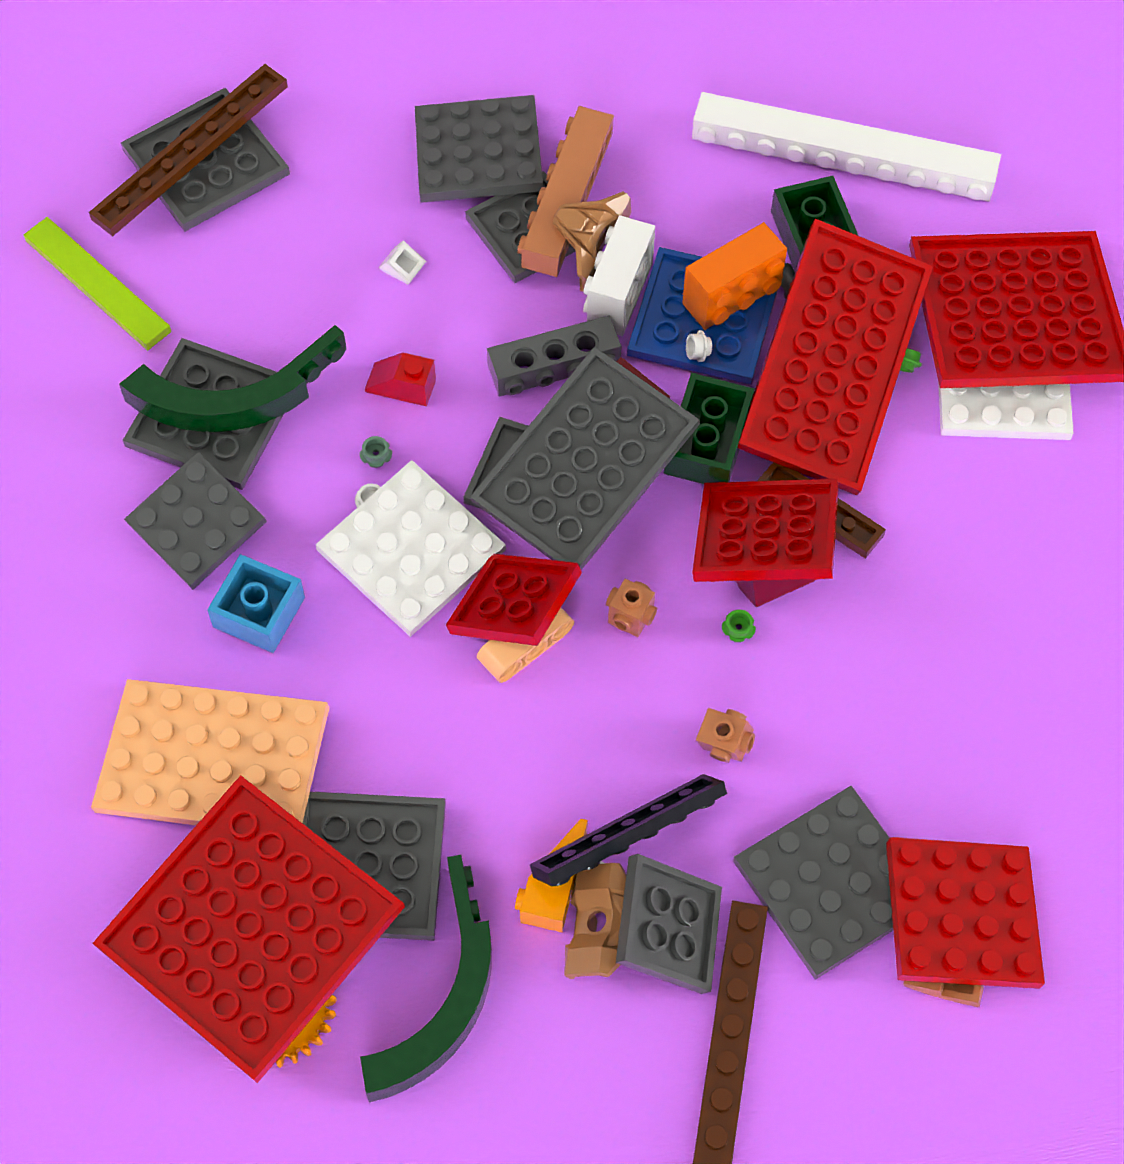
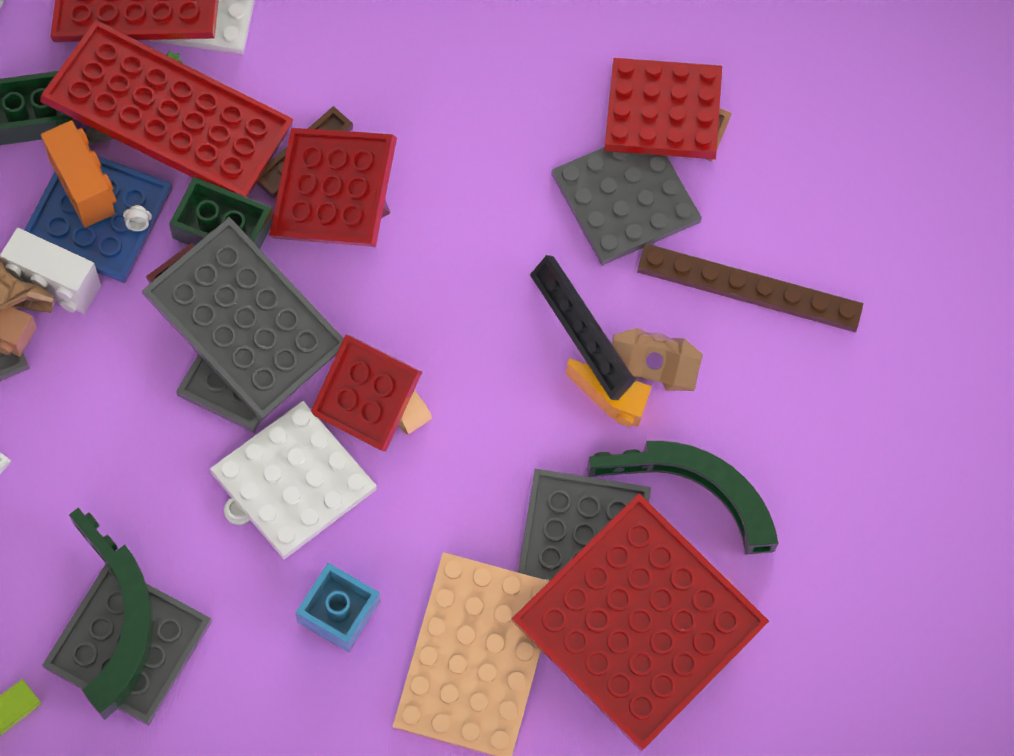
camera: 90 degrees left, 5 degrees up
(195, 520) = (242, 660): dark grey plate -> none
(375, 444) = (188, 495): sand green plate -> none
(403, 378) = (119, 472): red slope -> none
(536, 351) = (107, 300): dark grey brick -> none
(631, 607) = (379, 306): nougat brick -> none
(669, 924) = (661, 309): dark grey plate -> none
(726, 735) = (499, 258): nougat brick -> none
(742, 618) = (403, 223): bright green plate -> none

